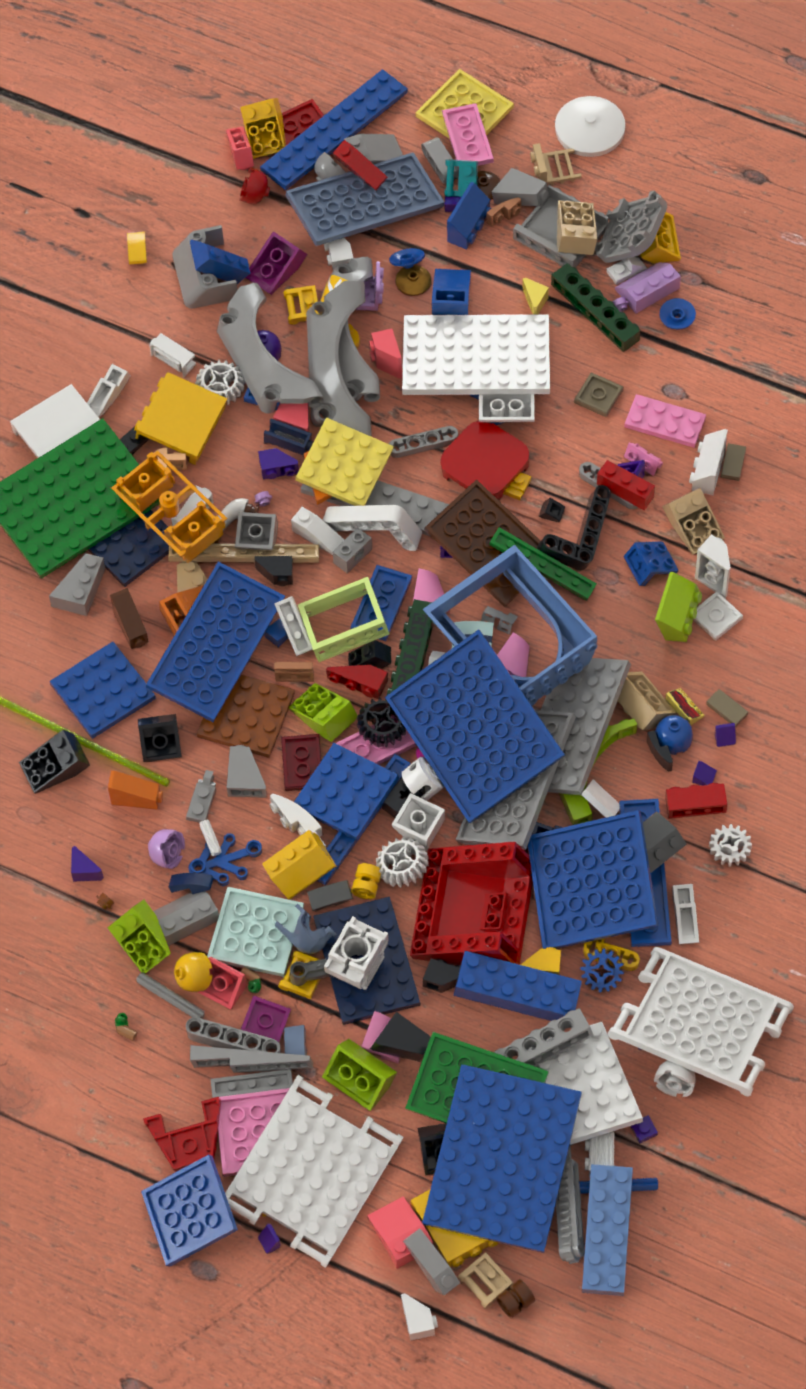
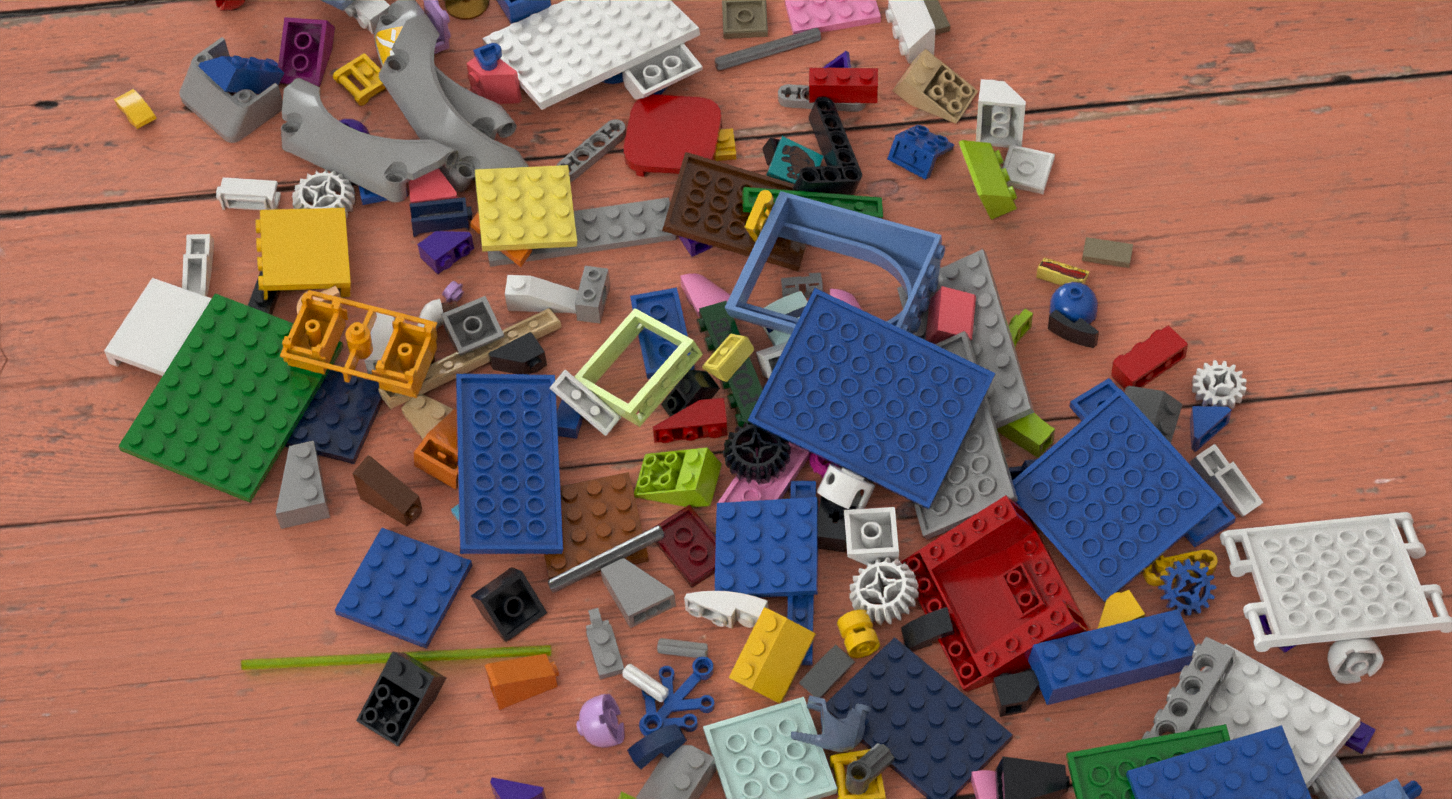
camera: 30 degrees left, 5 degrees down
(240, 741) = (606, 558): none -> flat silver axle
(250, 828) = (682, 648): none -> light grey axle
(294, 671) = (616, 452): nougat plate -> none
(357, 940) = (918, 697): white piece -> none
(376, 518) = (598, 246): white beam -> none
(388, 335) = (488, 56): none -> blue tile
(409, 645) = (729, 357): none -> light yellow slope
(413, 903) = (927, 628): none -> black slope
(487, 554) = (757, 216): none -> yellow plate
(554, 522) = (790, 159): none -> tile
(575, 696) = (950, 314): none -> coral slope
(598, 427) = (767, 49): none -> flat silver axle
(601, 799) = (1056, 409): white tile -> none
(636, 453) = (826, 53): bright pink hinge -> none
(643, 701) = (1022, 290): tan slope -> none
(701, 867) = (1206, 423): none -> blue slope
(703, 774) = (1134, 330): dark purple slope -> none
(725, 734) = (1127, 278): dark purple slope -> none

